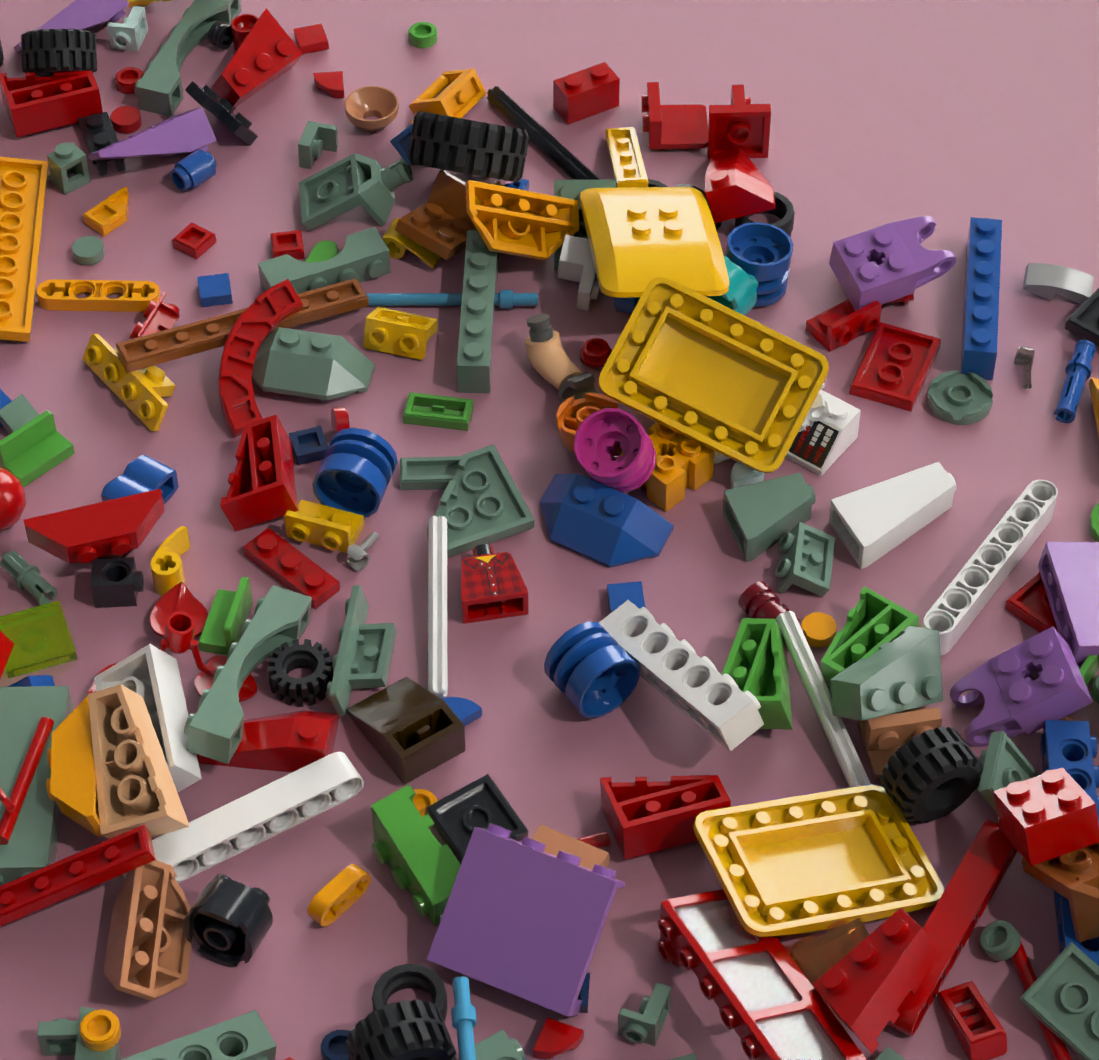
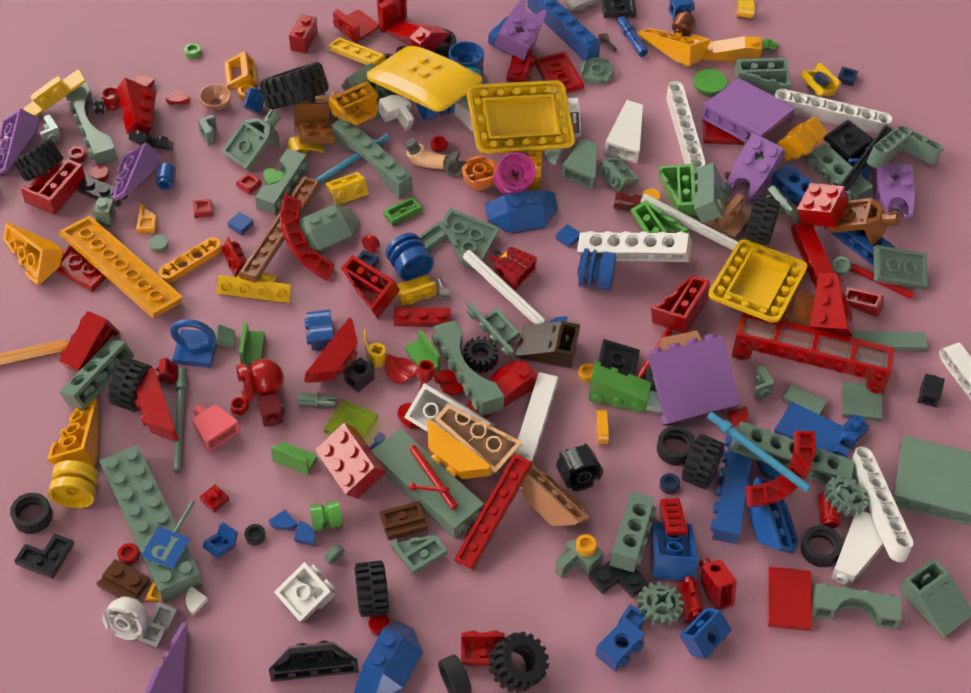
camera: 45 degrees left, 5 degrees up
(539, 135) = (294, 63): black axle -> none

